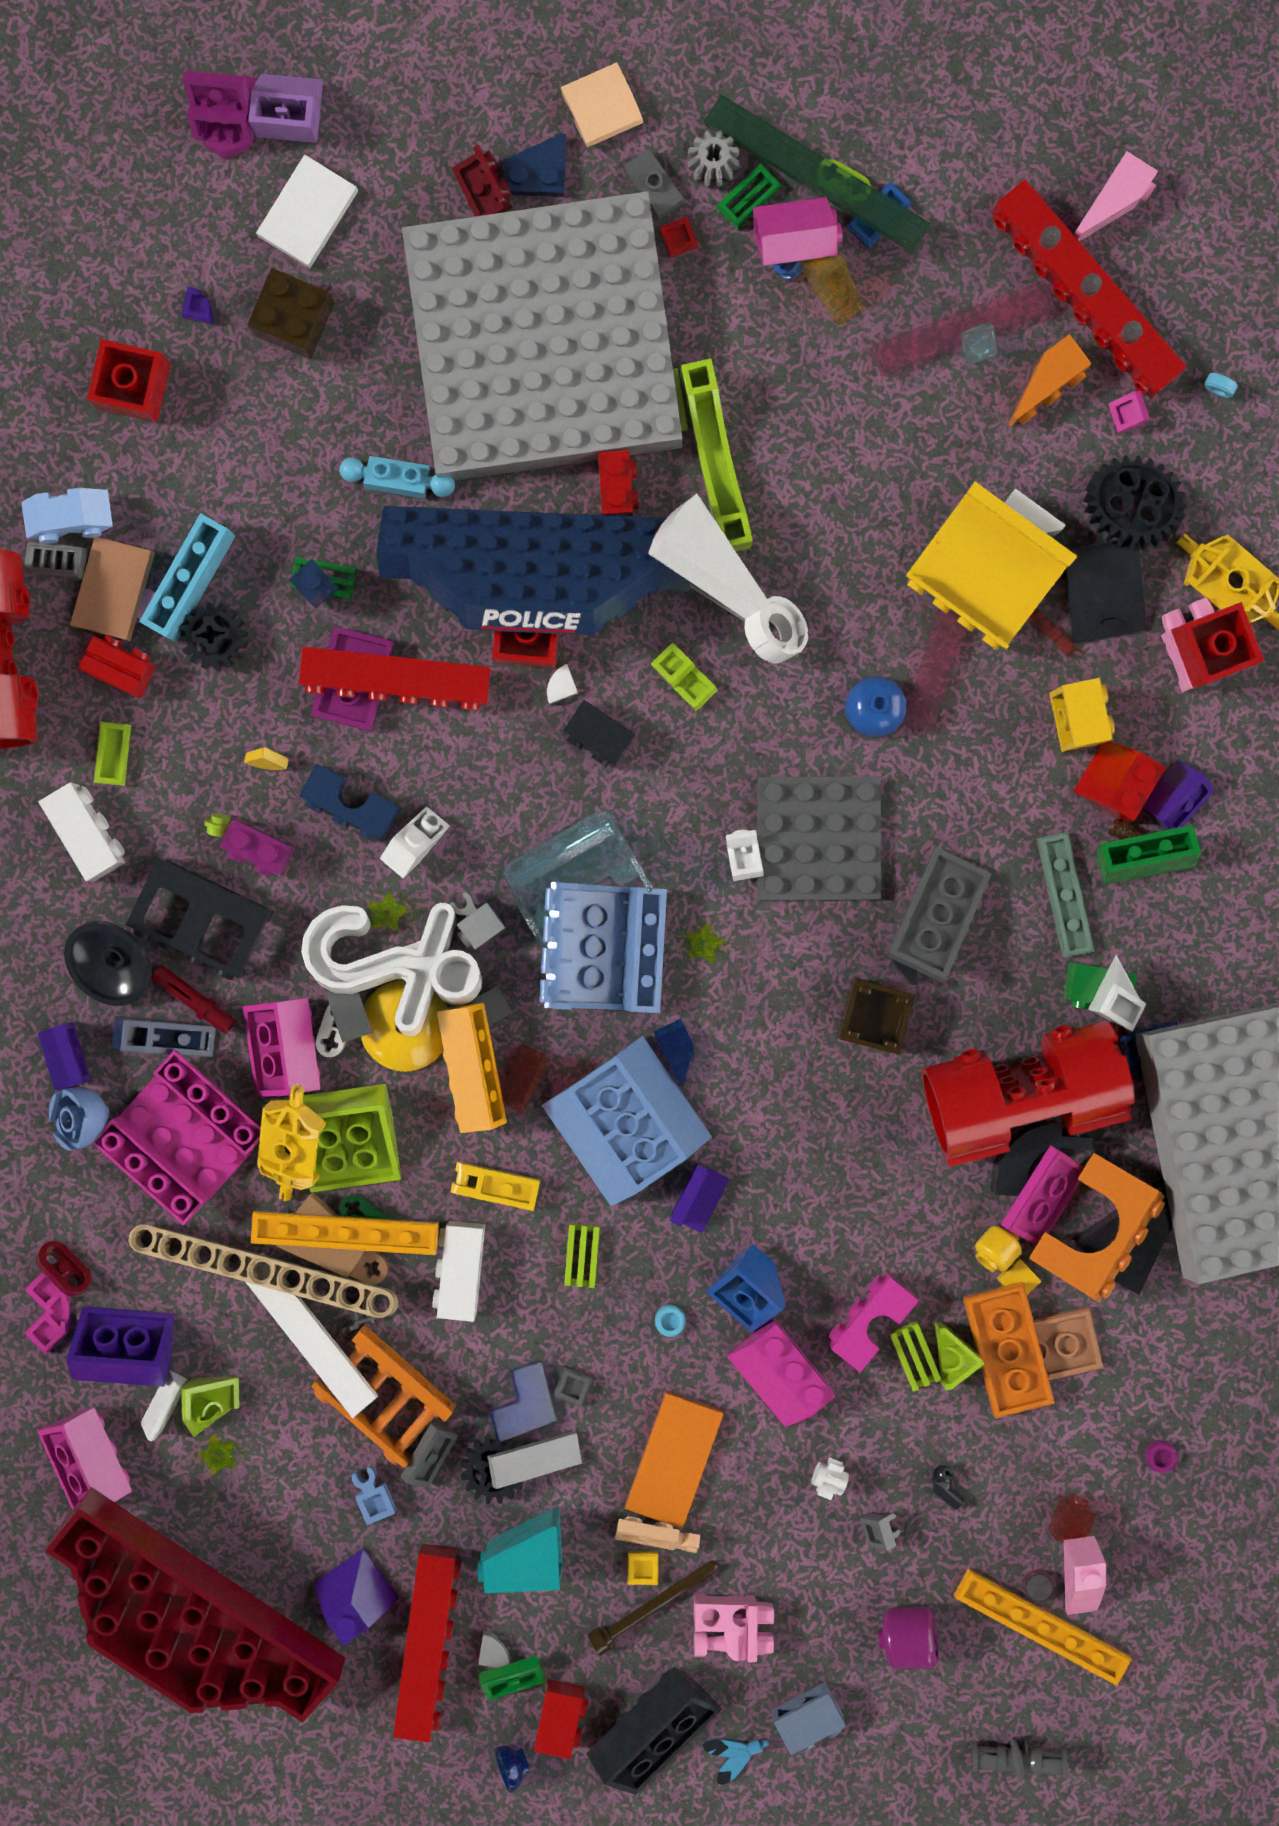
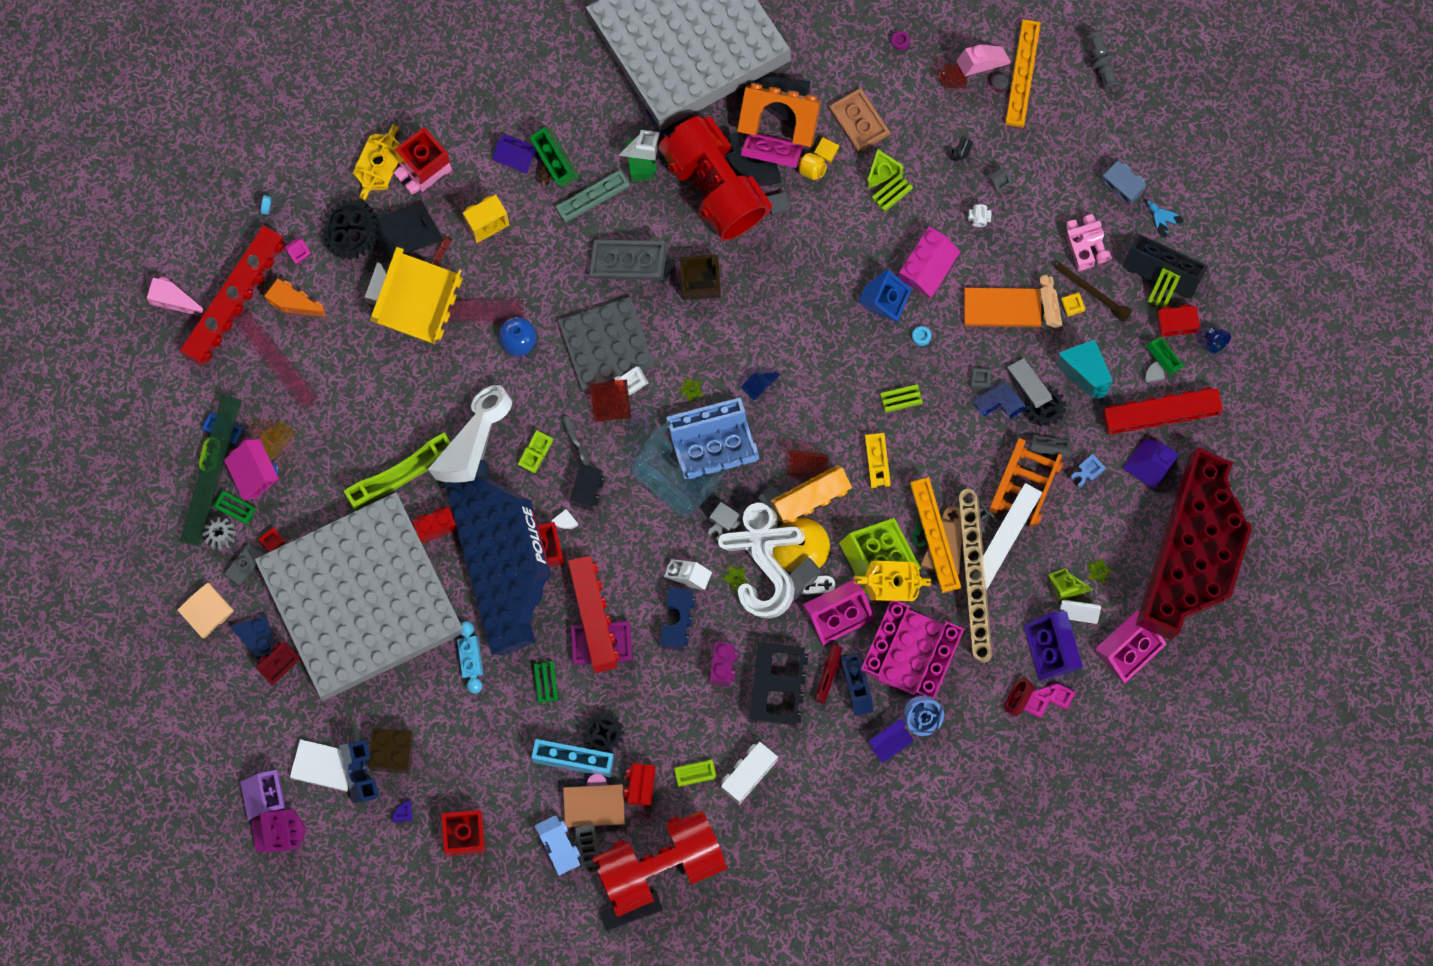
camera: 105 degrees left, 15 degrees down
(107, 963) = (832, 727): black dish -> none
(217, 824) = (717, 692): lime plate -> none
(266, 759) = (667, 679): yellow tile -> none
(279, 252) = (360, 784): none -> dark blue arch
(313, 583) = (552, 680): dark blue brick -> none
(459, 1270) = (935, 463): white brick -> none
(602, 1701) = (1158, 301): none -> lime tile
(627, 1122) = (813, 396): medium blue slope -> none
(644, 746) = (571, 432): none -> dark grey piece
(698, 1198) = (843, 343): dark purple panel -> none
(721, 813) = (610, 400): none -> clear red plate
(885, 1298) = (893, 229): dark pink arch -> none
(909, 1638) = (1054, 142): magenta head -> none
(956, 1178) = (779, 203): none -> dark grey tile
(979, 343) = (283, 346): clear light blue plate -> none
(1010, 1349) = (861, 144): orange tile -> none
(1119, 780) = (516, 186): red slope -> none

